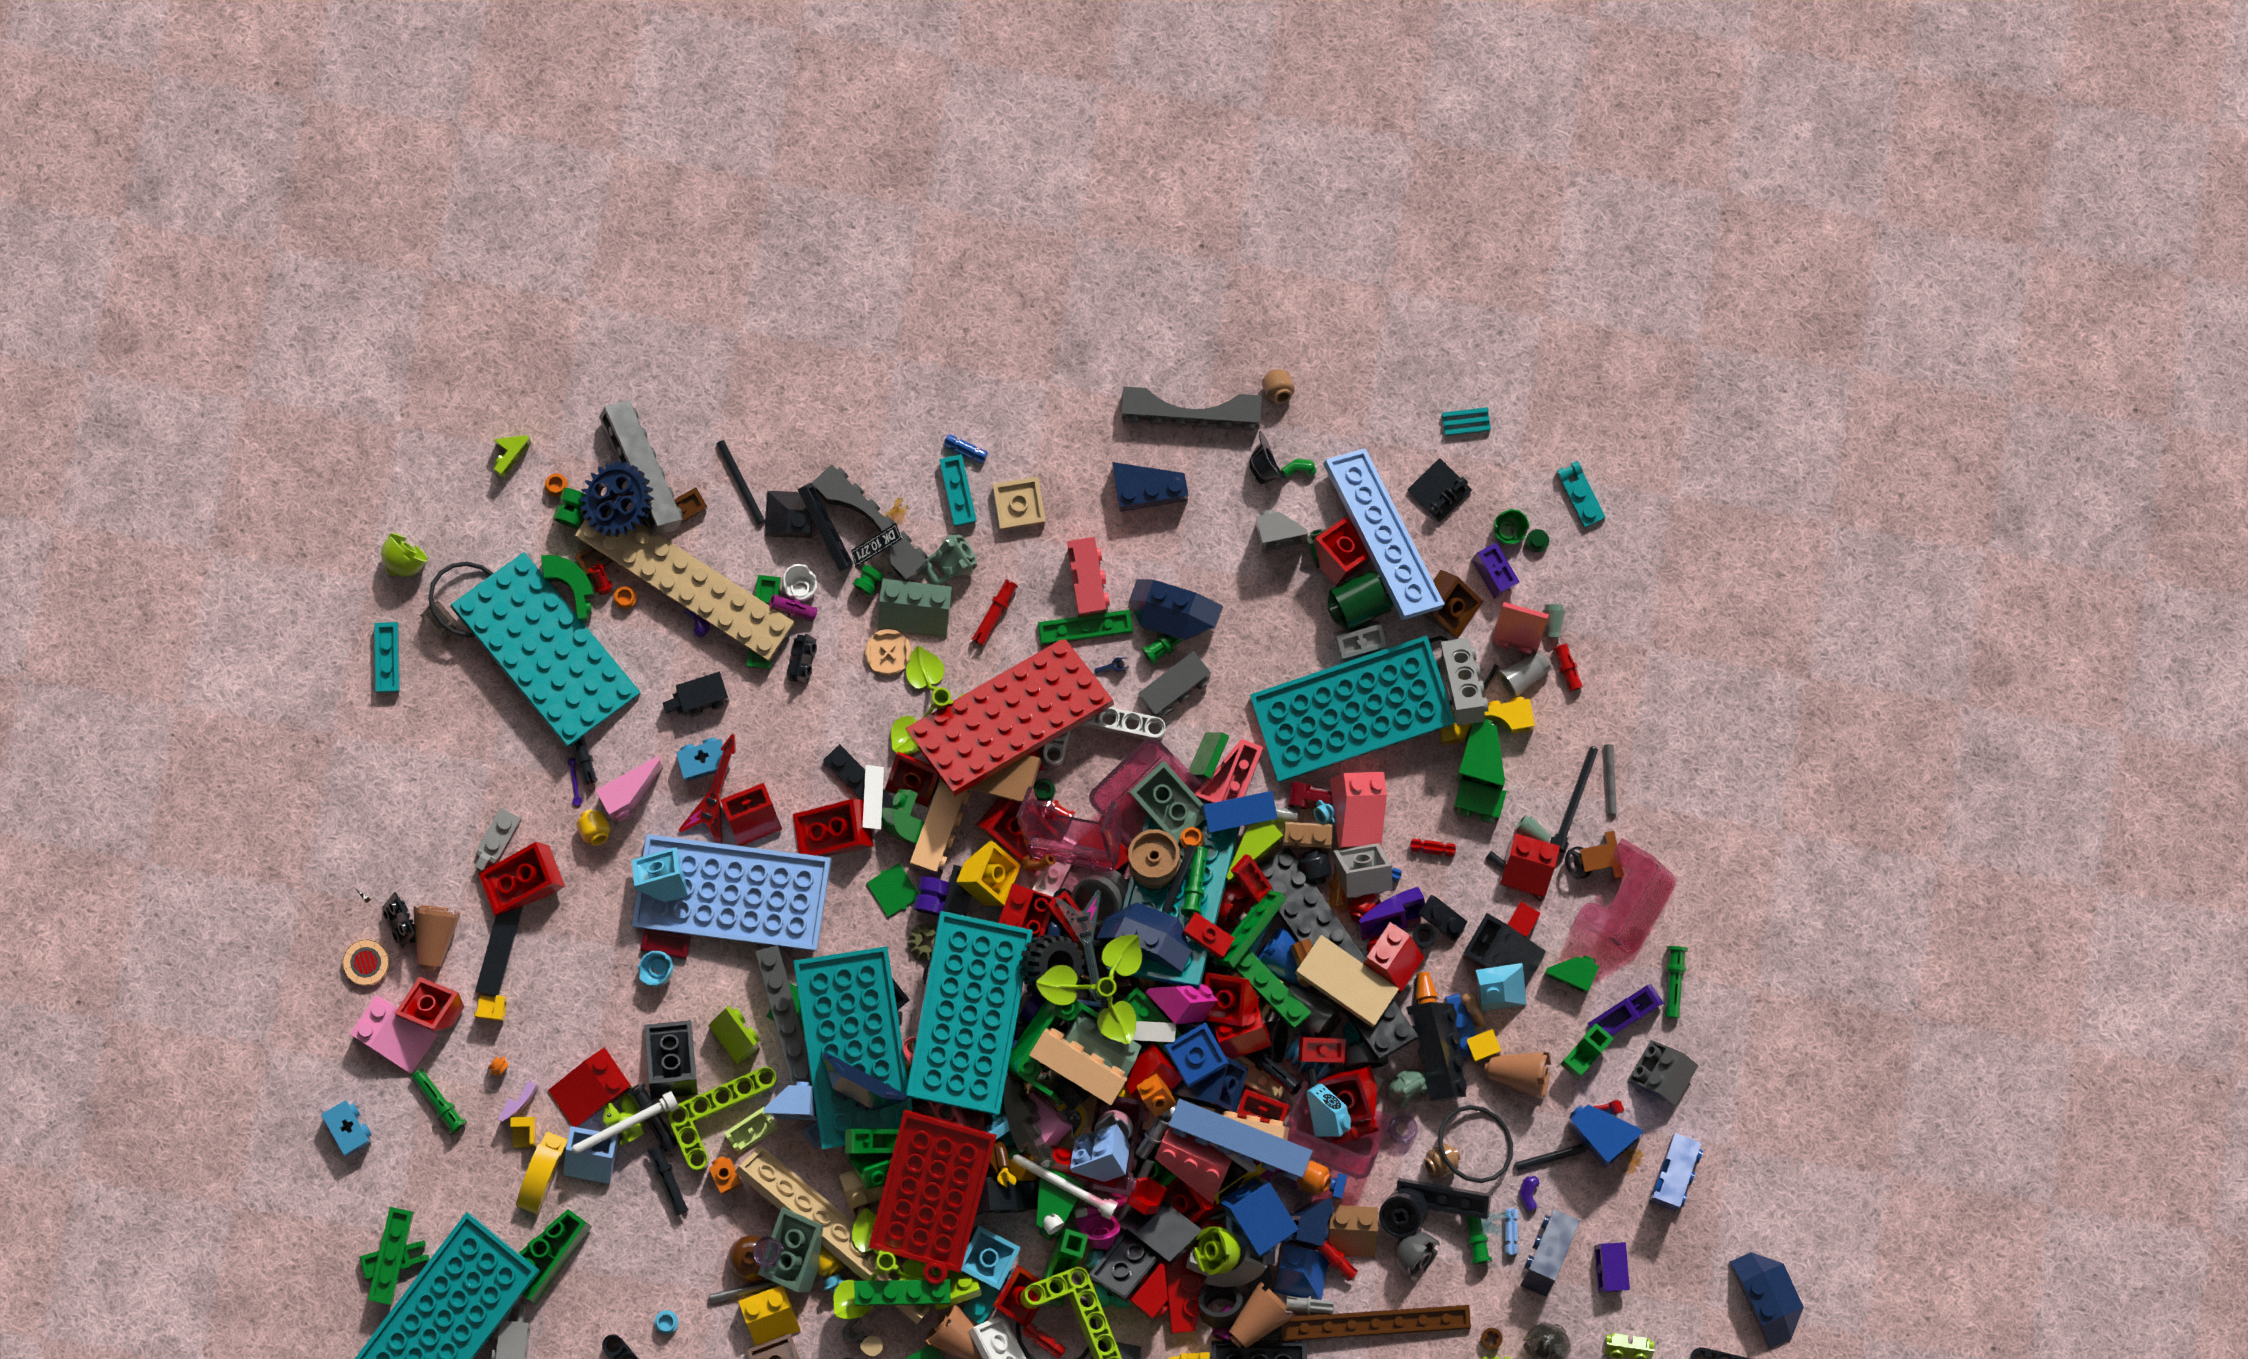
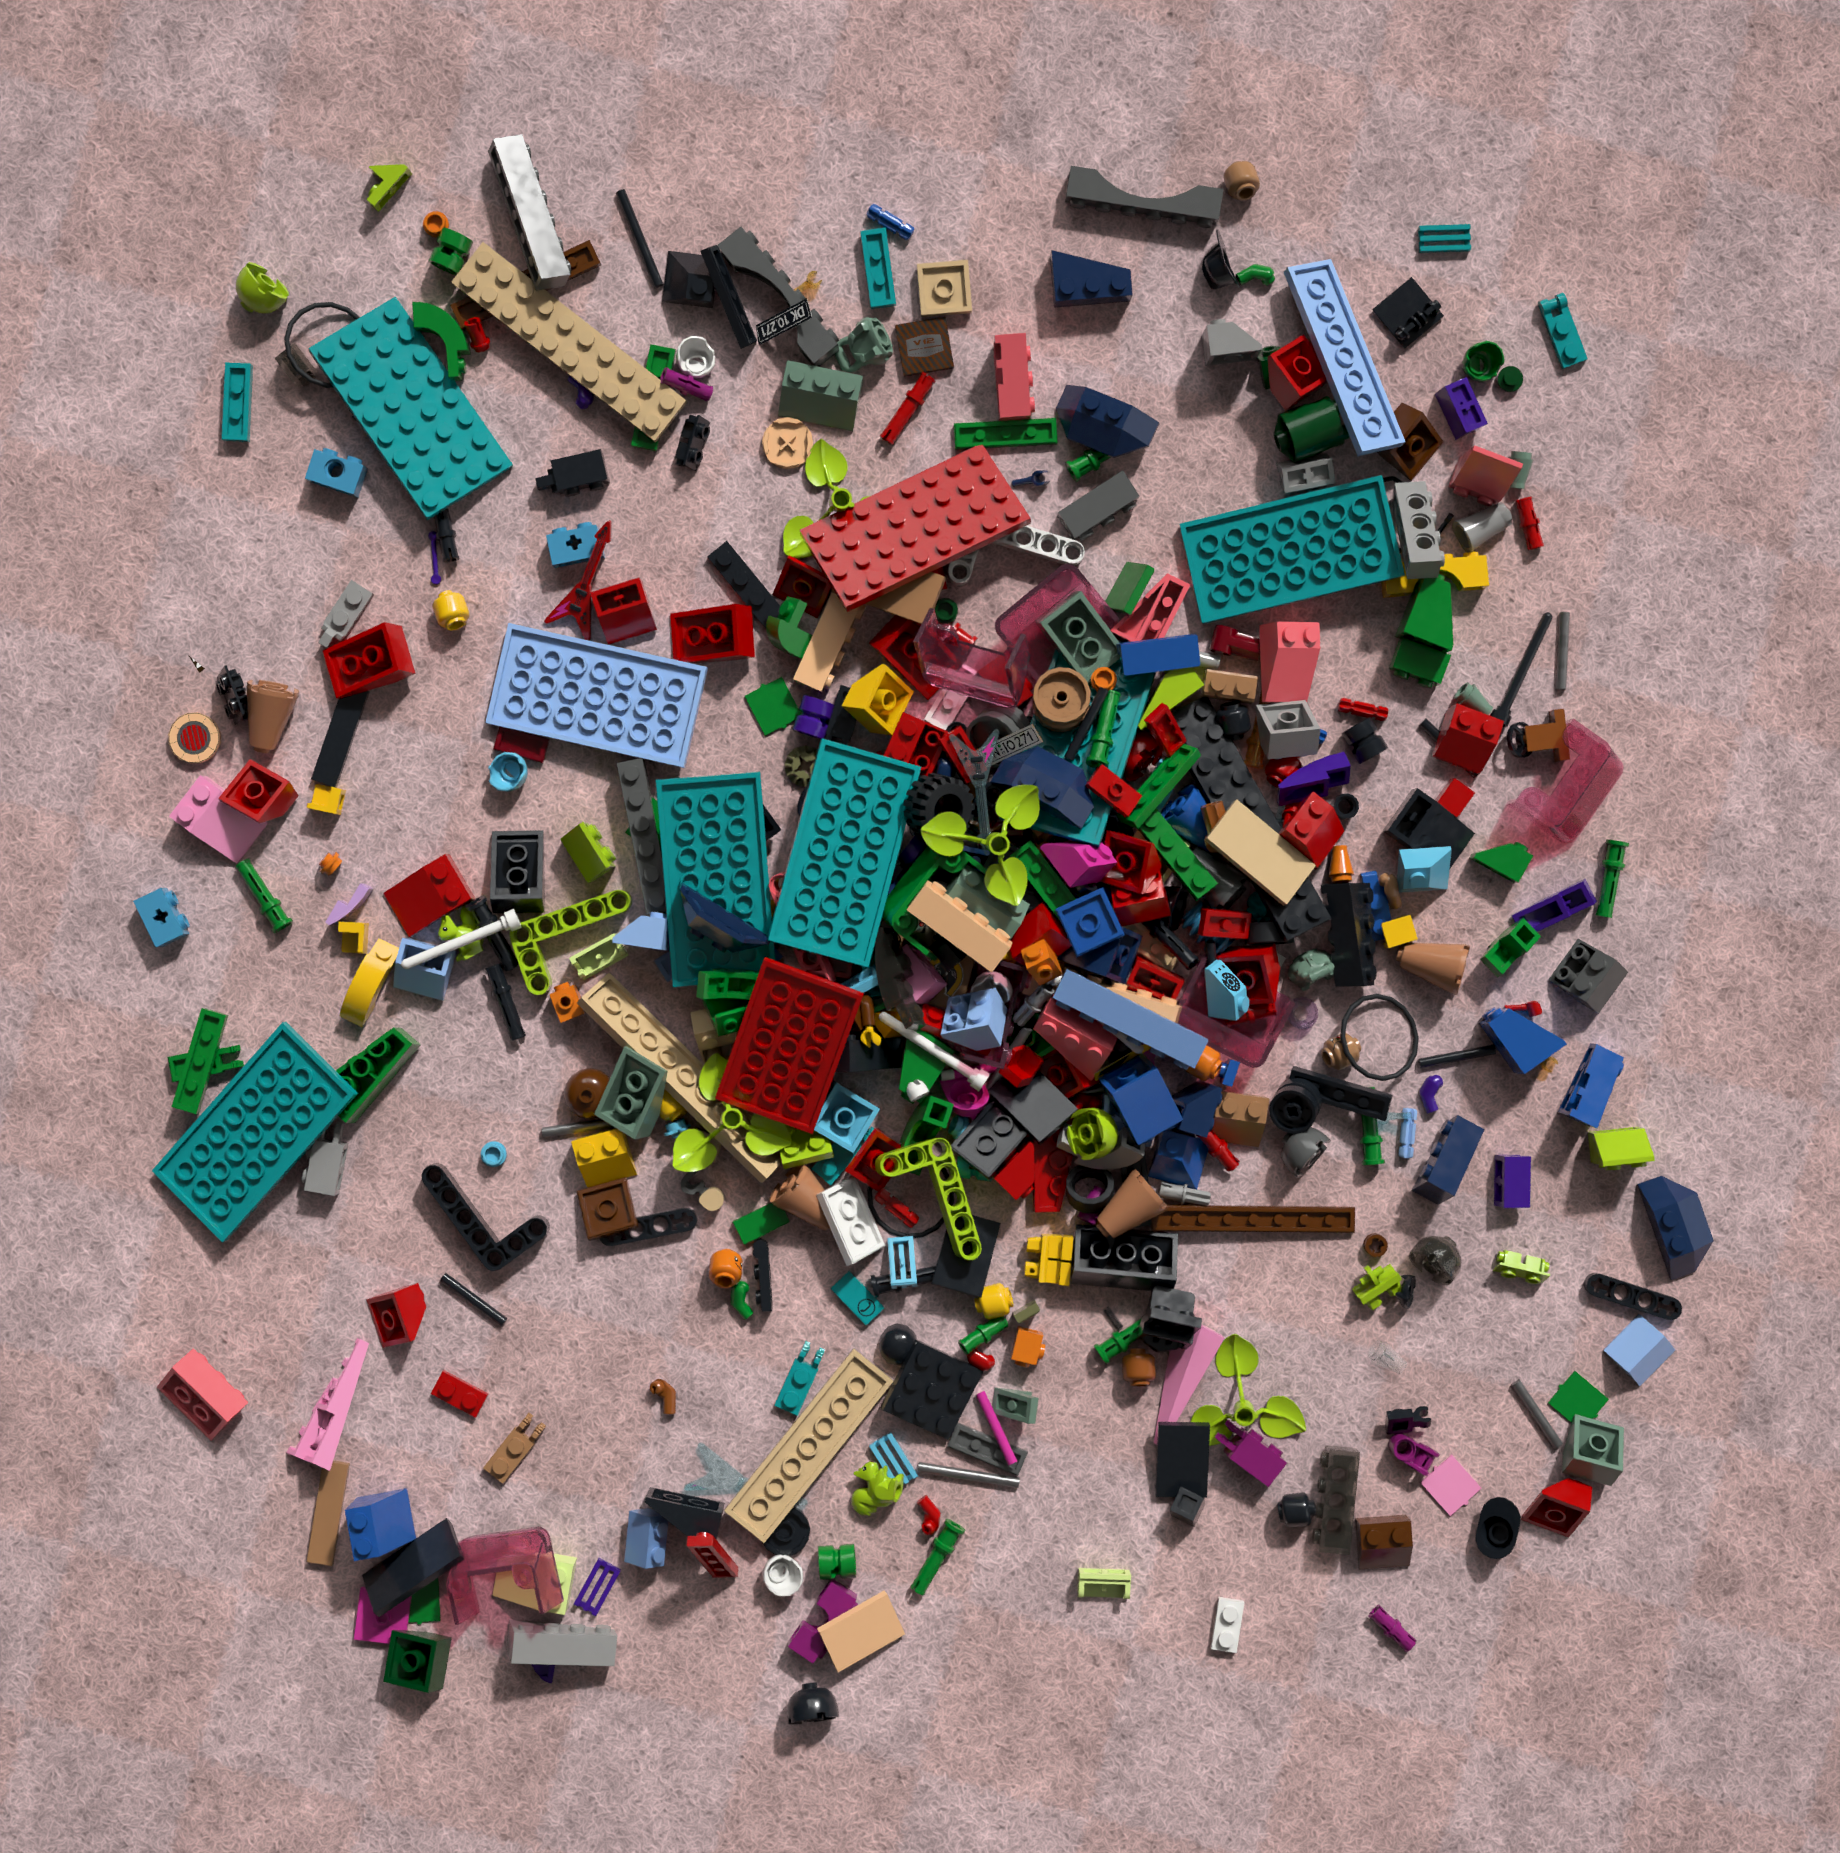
camera: 10 degrees right, 10 degrees up
(492, 721) = (321, 468): none -> dark azure brick
(620, 518) = (496, 222): dark blue gear -> none
(625, 597) = (503, 357): orange plate -> none
(627, 790) = (489, 574): bright pink slope -> none
(660, 875) = (519, 670): medium azure slope -> none
(759, 1252) = (597, 1093): clear purple piece -> none
(868, 579) = (772, 359): green wheel -> none
(873, 797) = (758, 603): white sticker -> none
(901, 1293) = (747, 1150): green plate -> none
(935, 1279) = (783, 1139): red plate -> none
(1005, 556) = (924, 346): none -> tile
(1038, 865) = (936, 693): dark orange arm -> none
(1116, 901) = (1015, 743): none -> white sticker
(1155, 1031) = (1047, 892): white sticker -> none
(1324, 813) = (1249, 663): medium azure plate -> none
(1436, 874) = (1364, 740): none -> black wheel
(1442, 917) = (1367, 788): black plate -> none
(1706, 1226) = (1620, 1147): none -> lime slope

